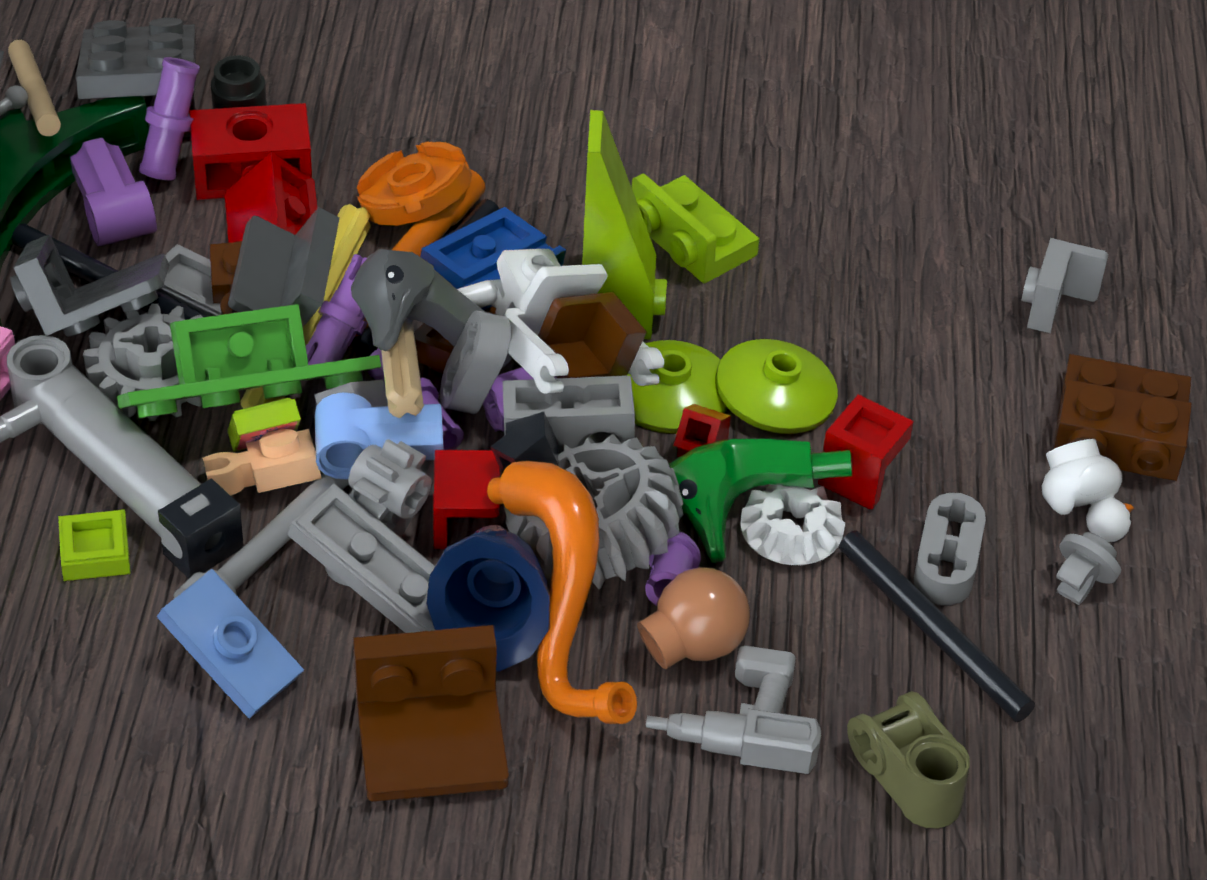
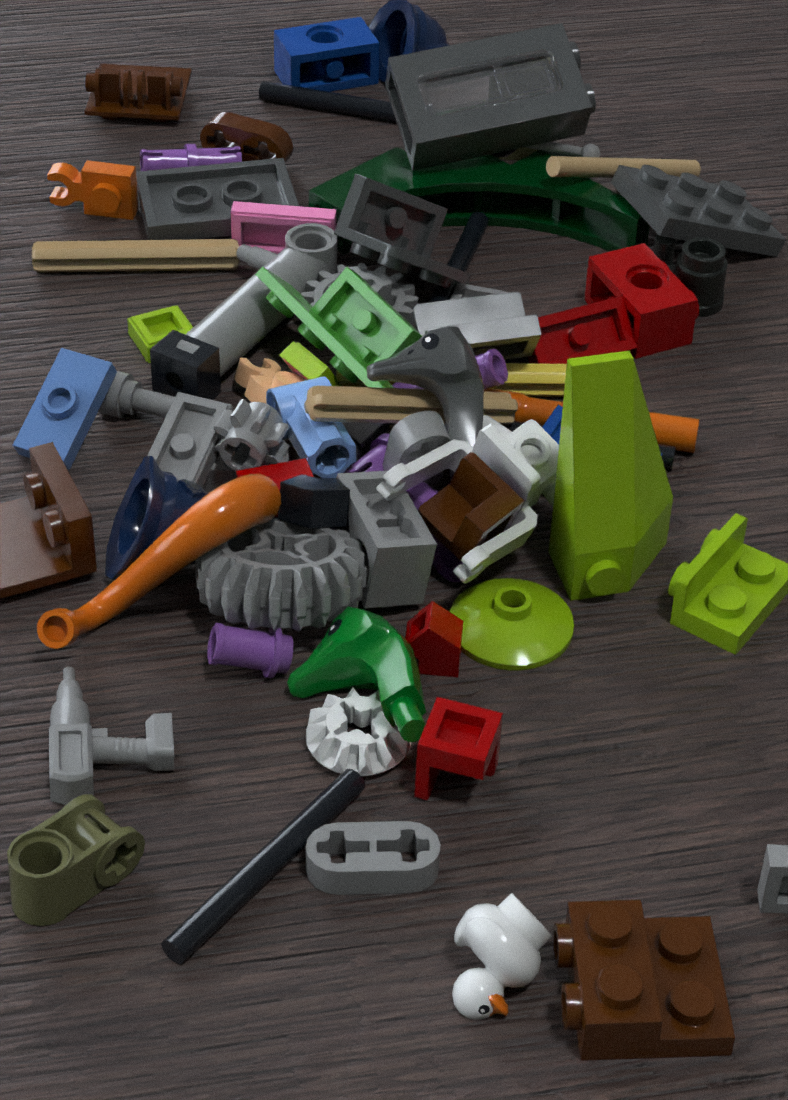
camera: 75 degrees right, 5 degrees down
(113, 201) = (533, 251): medium lavender piece -> none
(169, 118) = (632, 225): medium lavender pin -> none
(414, 186) = (676, 396): orange tile -> none
(697, 618) = (185, 669): nougat piece -> none
(776, 386) = (539, 710): lime dish -> none
(1087, 560) = (384, 966): light grey plate -> none

